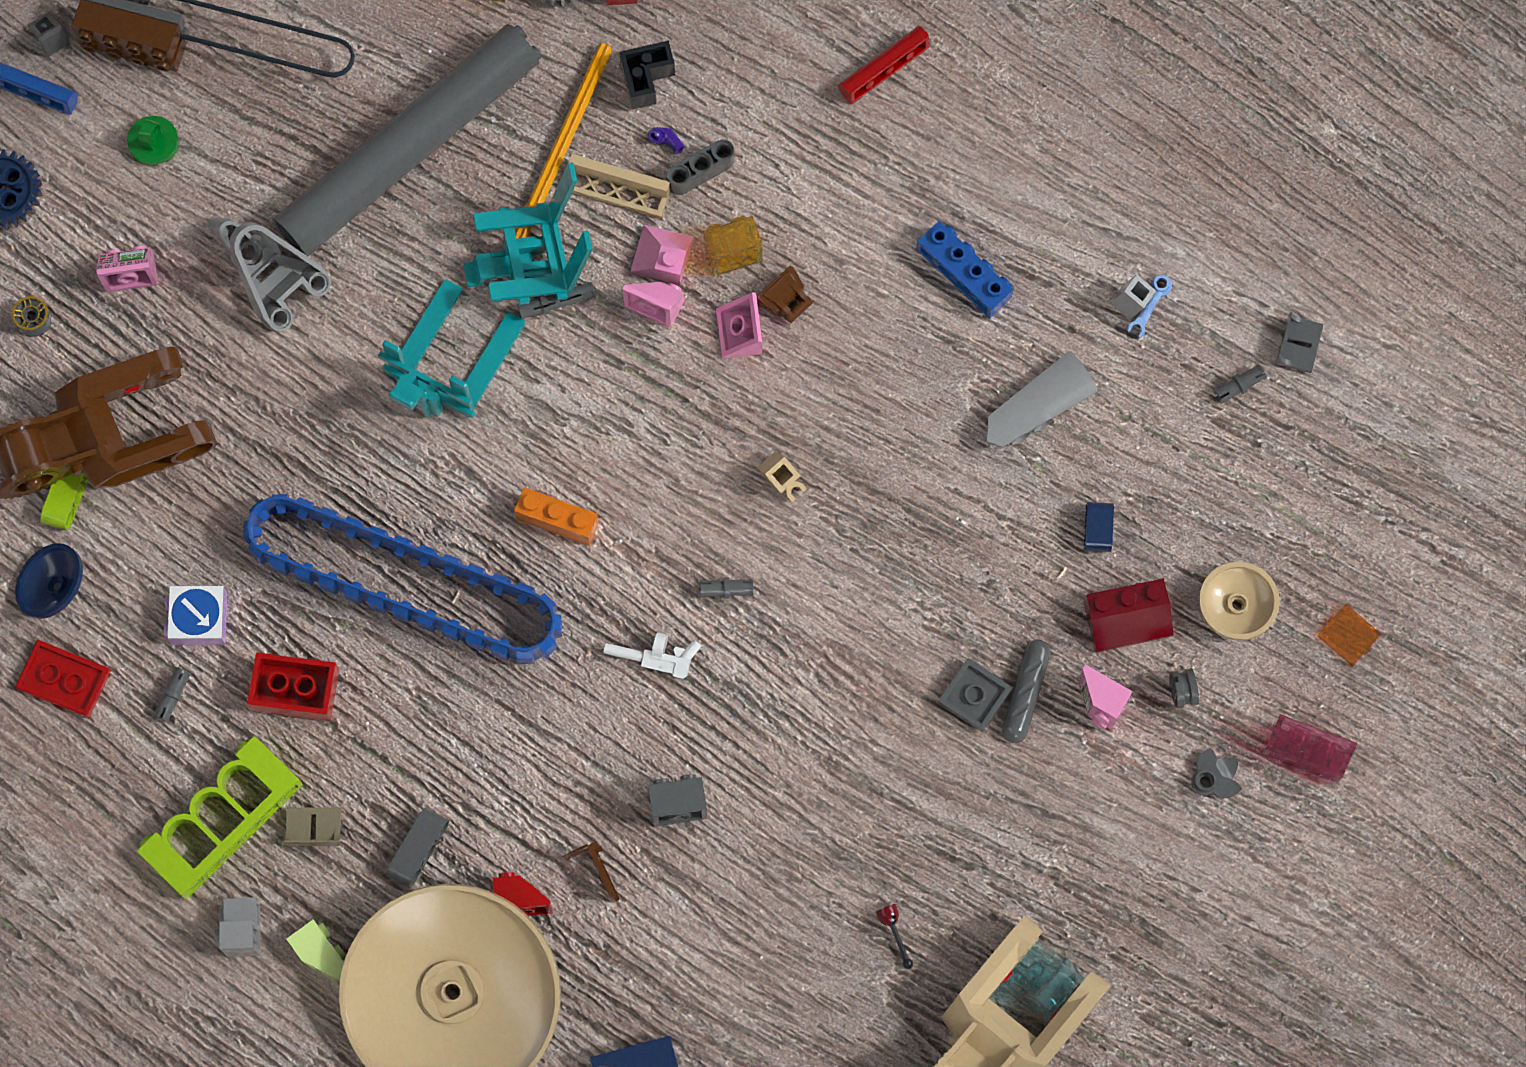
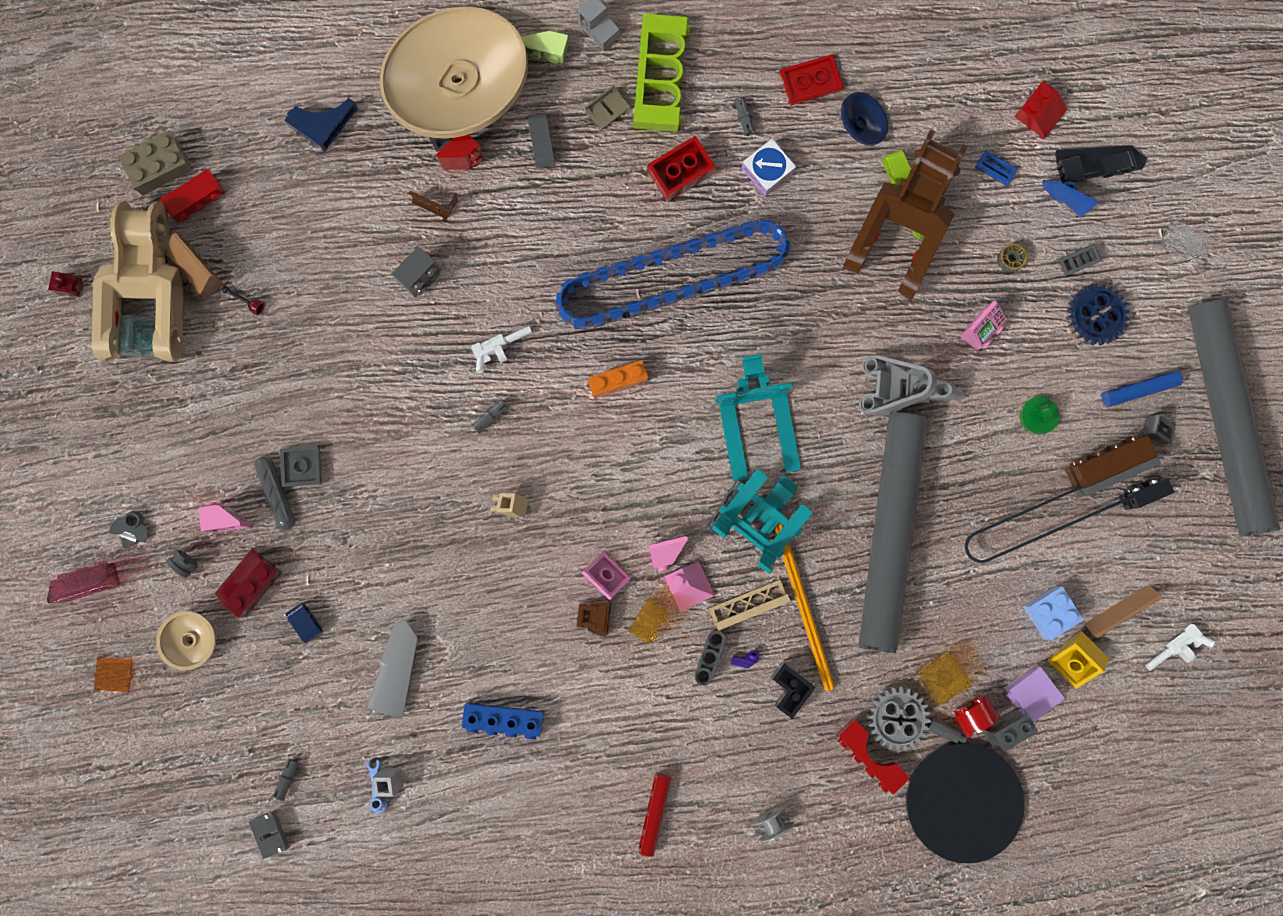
camera: 140 degrees right, 10 degrees up
(925, 1011) = (192, 267): none -> medium nougat slope

